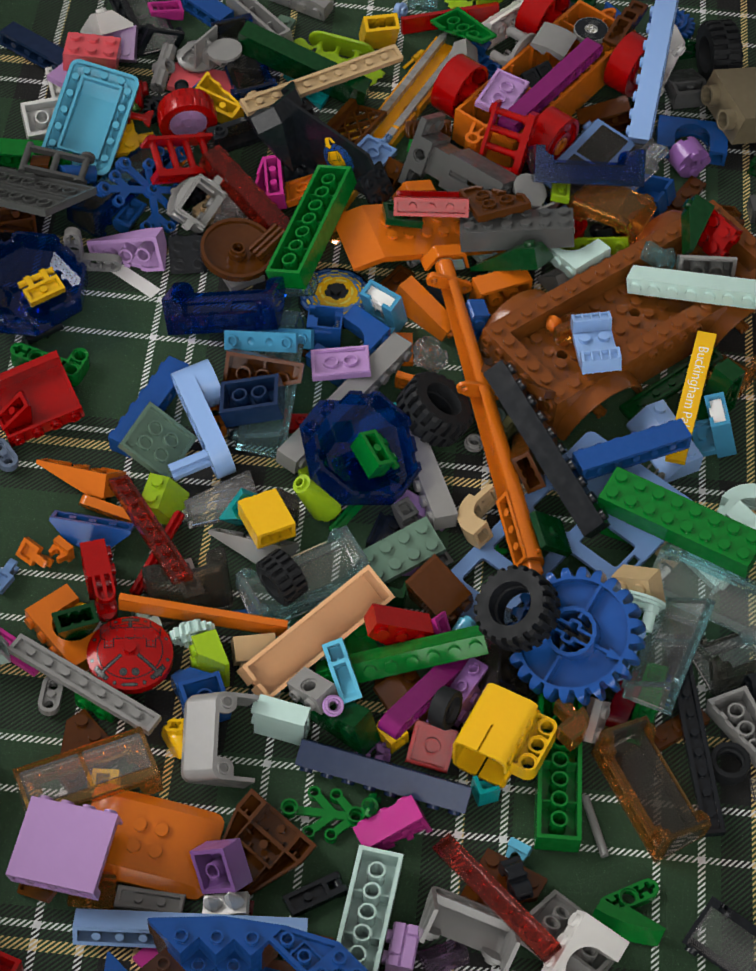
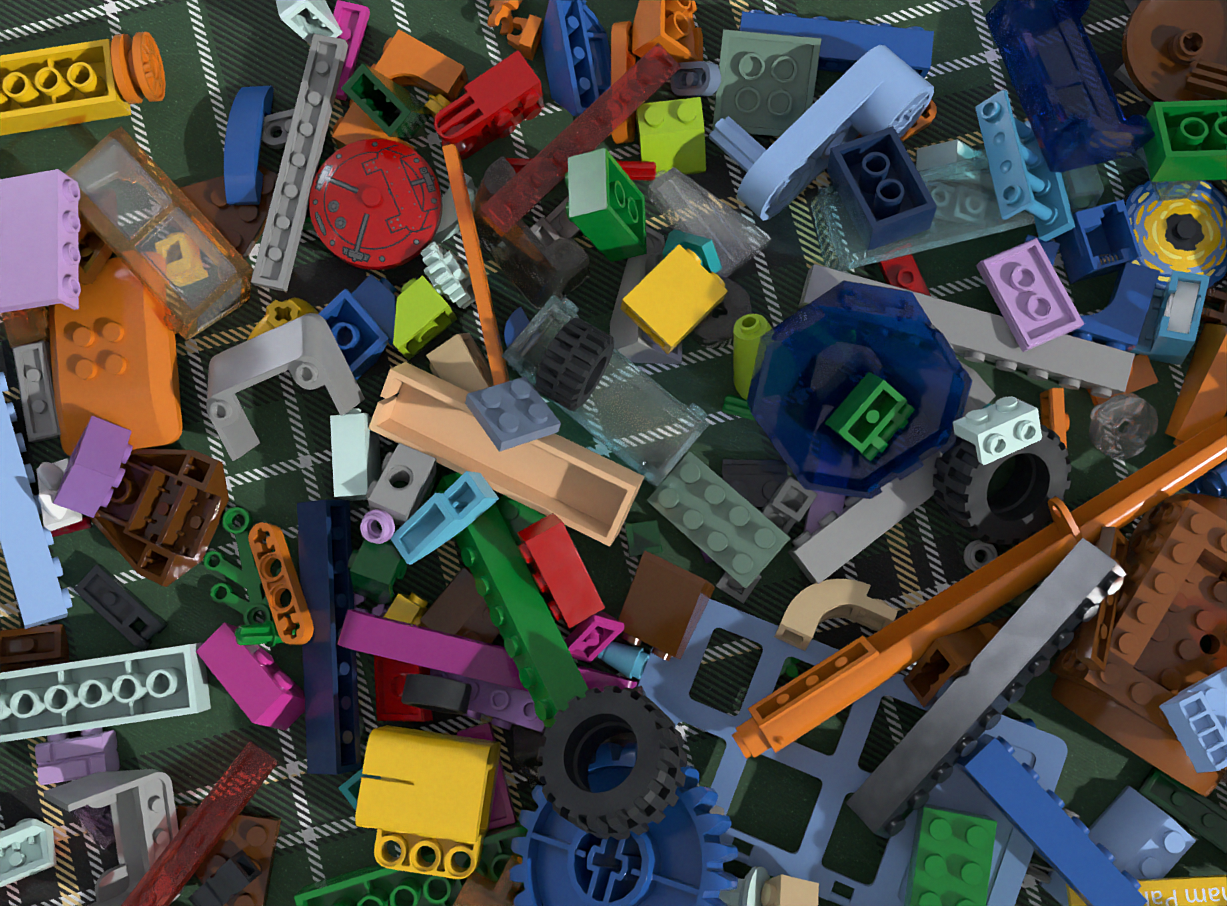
camera: 75 degrees right, 30 degrees up
(51, 717) = (243, 145): none -> blue slope
(139, 473) = (696, 79): none -> sand blue plate
(195, 530) = (606, 205): none -> green brick
(247, 364) = (949, 162): reddish brown wedge -> none
(297, 611) = (512, 413): none -> sand blue plate
(341, 792) = (276, 585): none -> orange beam
(409, 388) = (1000, 428): none -> light aqua bracket
(519, 847) = (290, 869): medium azure tile -> none
(550, 533) = (831, 746): dark green plate -> none

